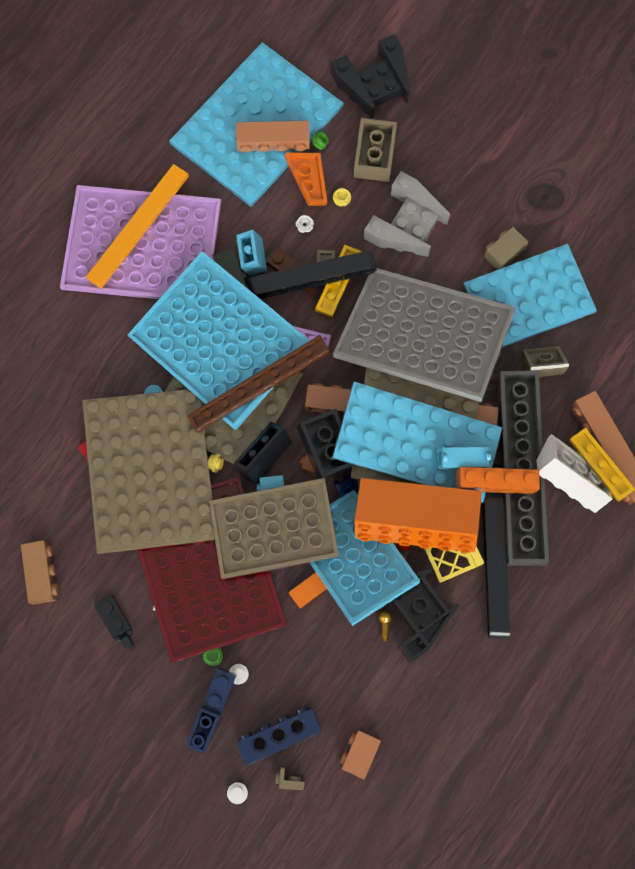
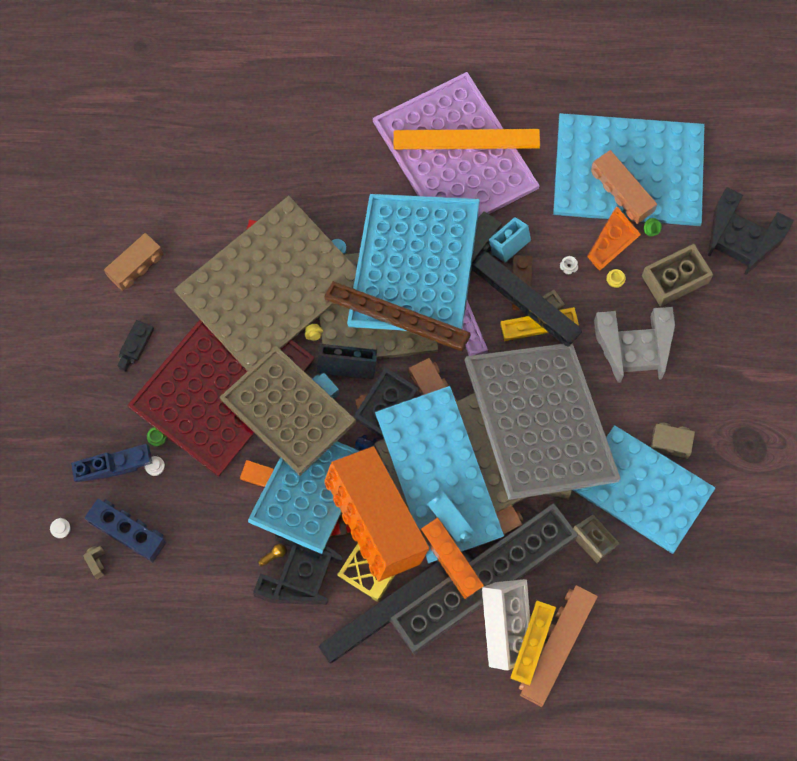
camera: 55 degrees right, 5 degrees down
(360, 754) = (152, 603): nougat brick -> none

